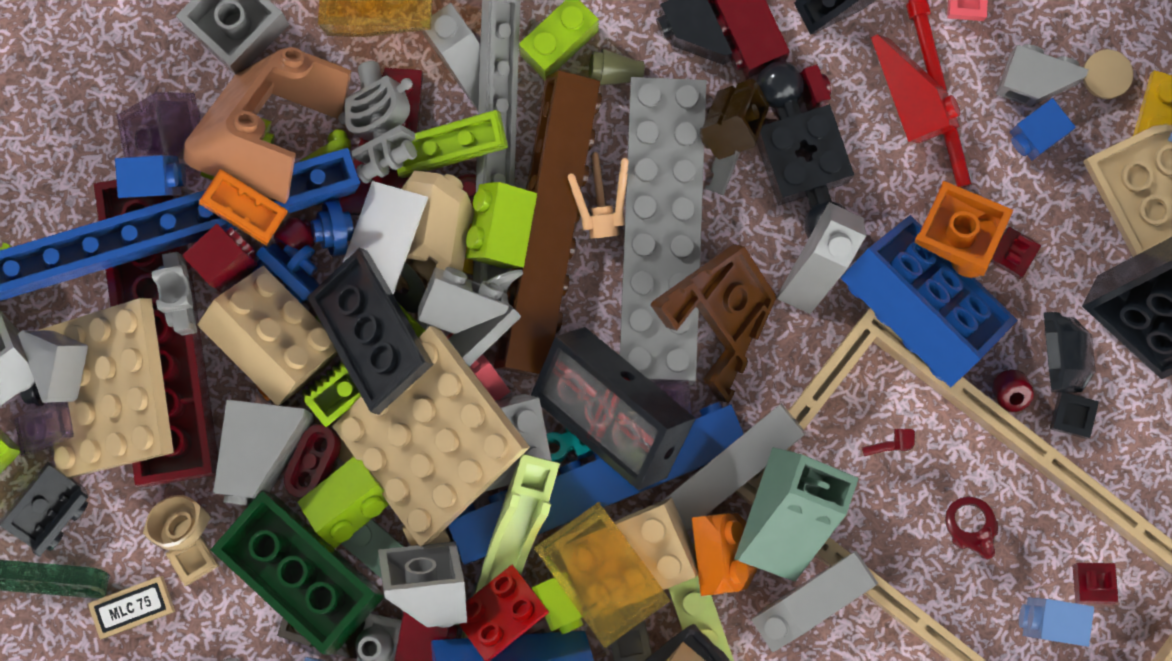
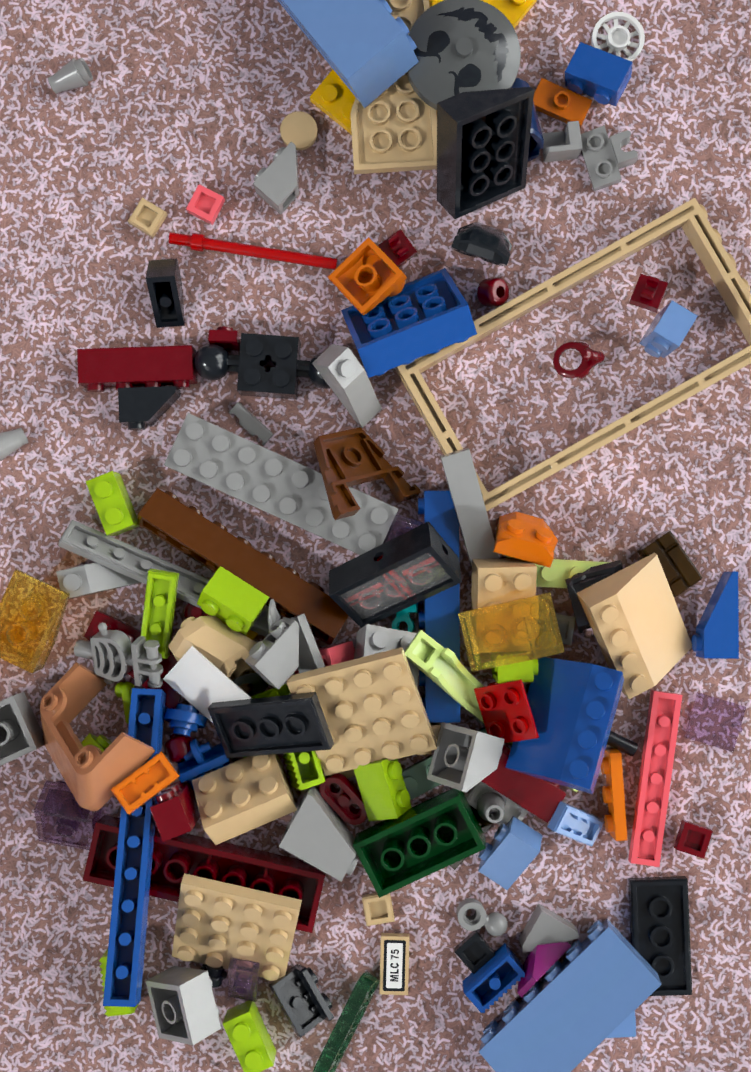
camera: 65 degrees left, 5 degrees up
(54, 363) = (202, 958): light grey slope -> none
(149, 176) = (94, 841): blue brick -> none
(175, 294) = (188, 854): light grey plate -> none
(175, 522) = (348, 911): tan hat -> none
(602, 219) = (257, 526): light nougat plant -> none
(614, 68) = (151, 474): olive cone -> none
(734, 119) = (225, 404): dark brown brick -> none
(794, 513) = (520, 479): sand green slope -> none
(813, 601) = (583, 491): light grey slope -> none
(903, 441) = (497, 382): dark red hand -> none
(919, 99) = (262, 269): red slope -> none
(1041, 130) = (320, 193): blue brick -> none
(1074, 415) = (526, 257): black plate -> none

